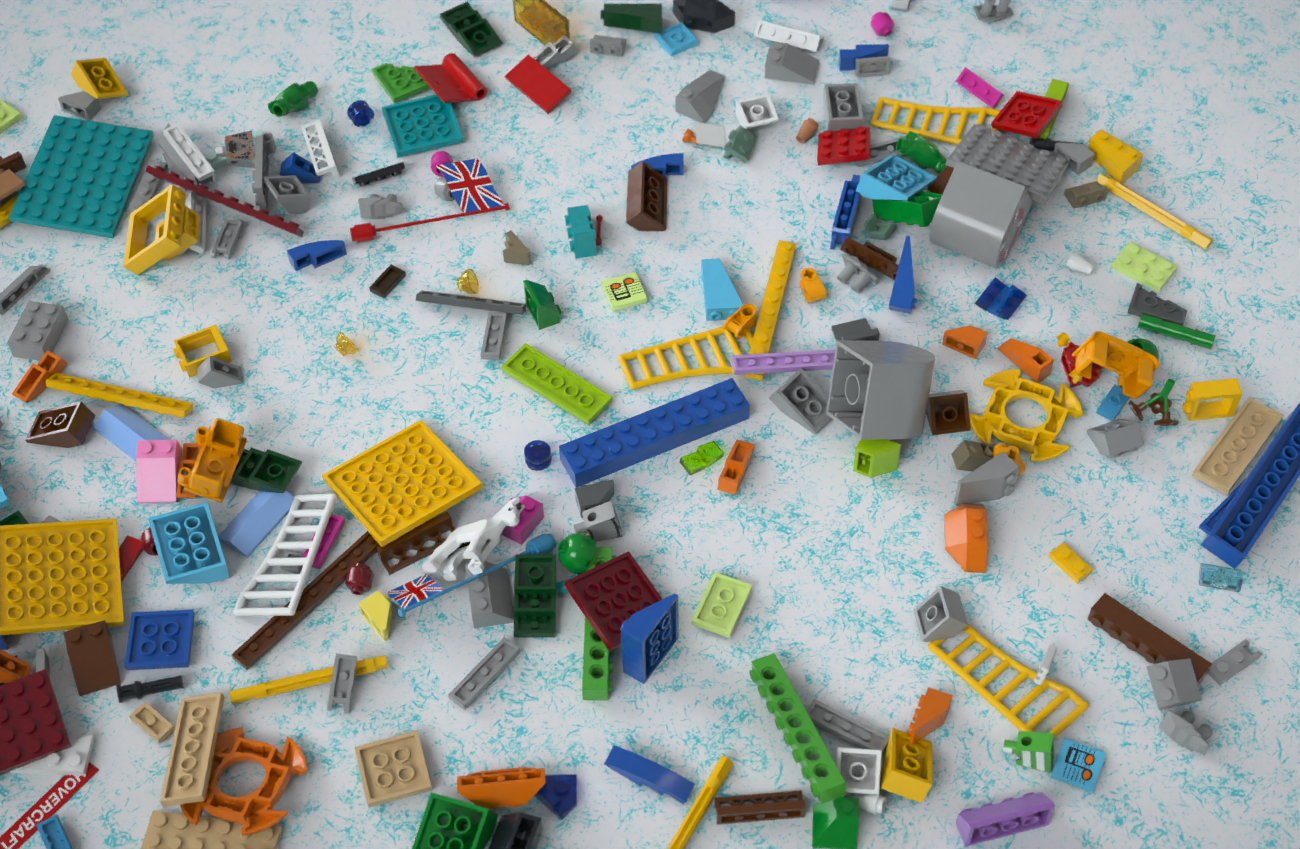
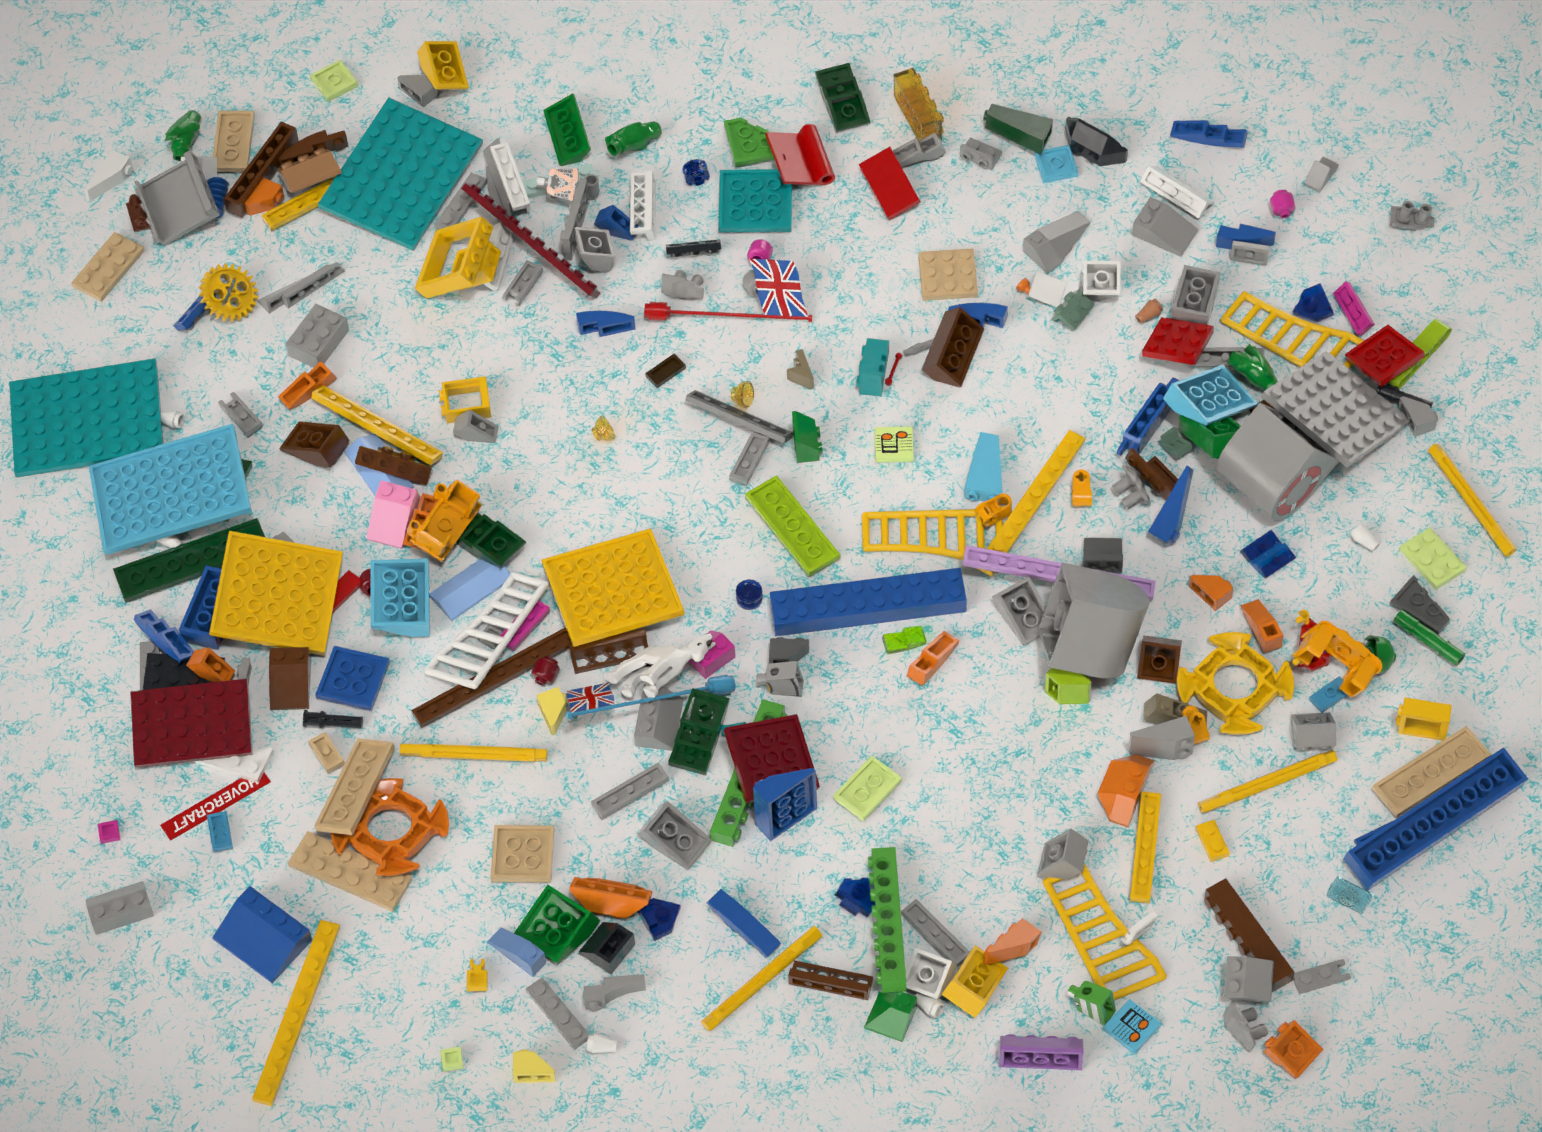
camera: 20 degrees right, 5 degrees up
(146, 424) = (393, 463): none -> reddish brown bracket
(230, 107) = (567, 131): none -> green slope
(342, 681) = (501, 762): light grey hinge -> none
(545, 705) = (674, 835): none -> light grey slope
(576, 552) = (749, 700): green cylinder -> none
(614, 207) = (918, 347): none -> light grey piece
(617, 143) = (948, 274): none -> tan plate
(753, 714) = (855, 896): none -> clear blue plate
(945, 92) = (1313, 304): none -> clear blue plate
(1013, 587) = (1145, 847): none -> yellow plate
(1085, 194) = (1410, 461): dark tan bracket -> none
(1095, 494) = (1267, 781): none -> yellow piece
(1115, 156) = (1459, 427): yellow wedge -> none
(1159, 404) = (1374, 707): reddish brown plant -> none
(1244, 740) = (1292, 1048): none -> orange plate

